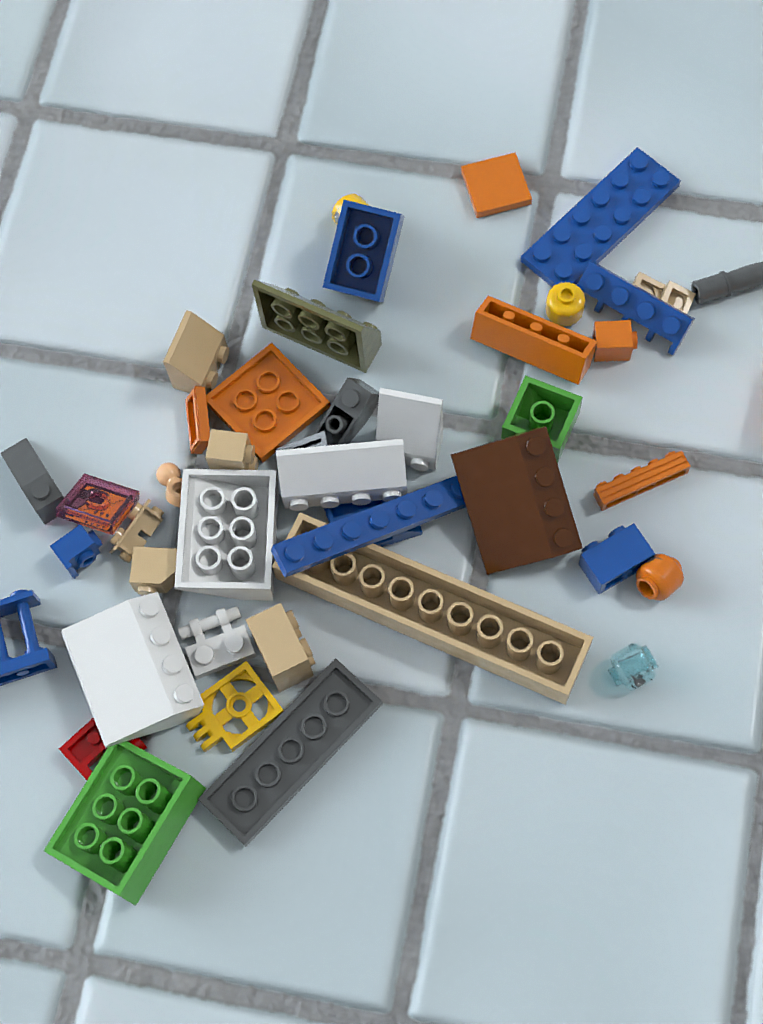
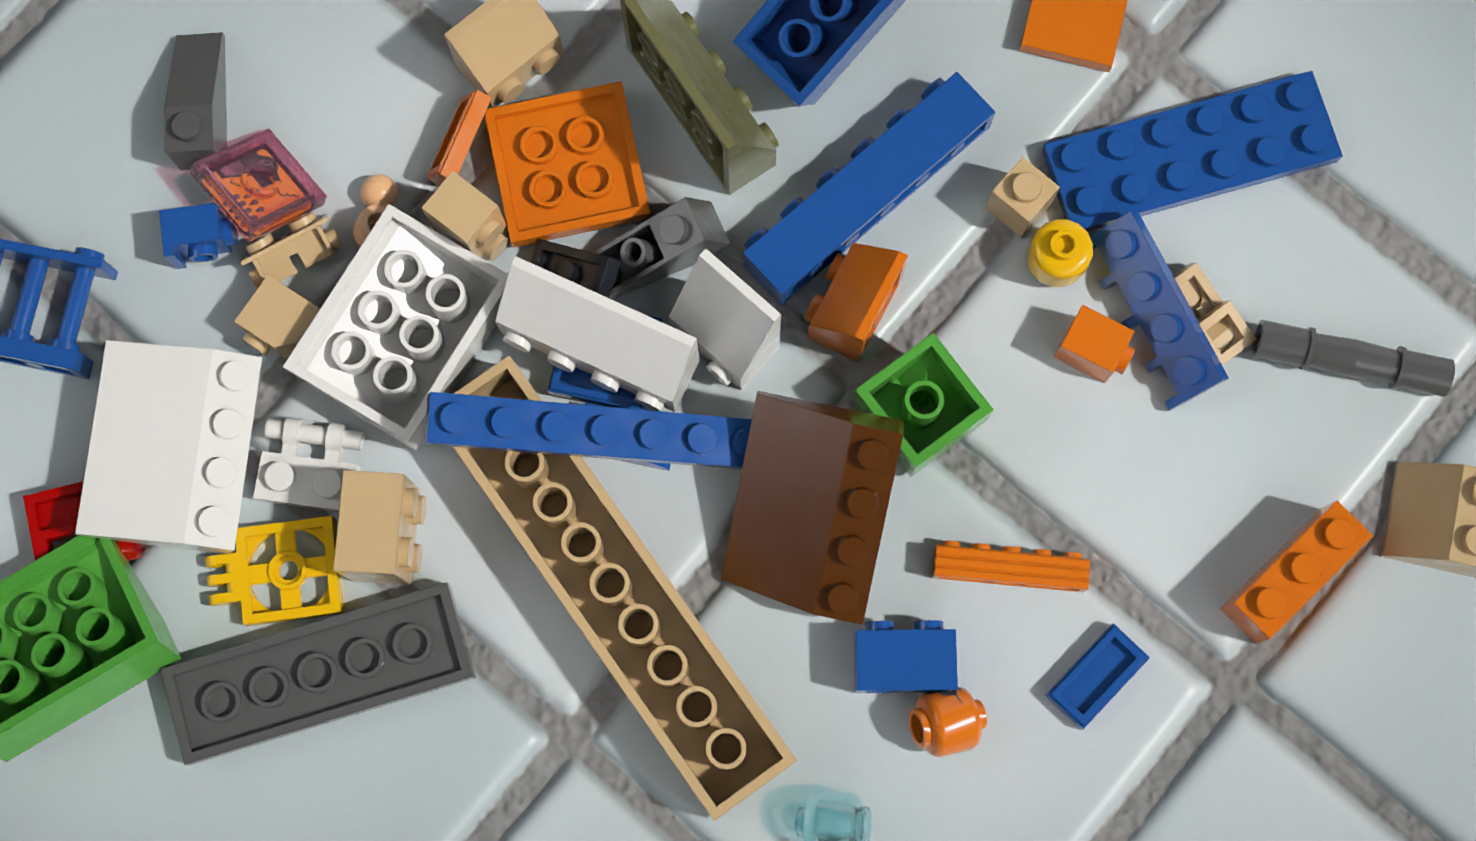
camera: 25 degrees right, 10 degrees up
(442, 320) = (867, 188): none -> blue brick
(471, 384) = (856, 298): none -> orange slope
(527, 287) = (1022, 197): none -> tan brick
(533, 339) = (981, 281): orange brick -> none
(723, 511) = (1097, 676): none -> blue tile

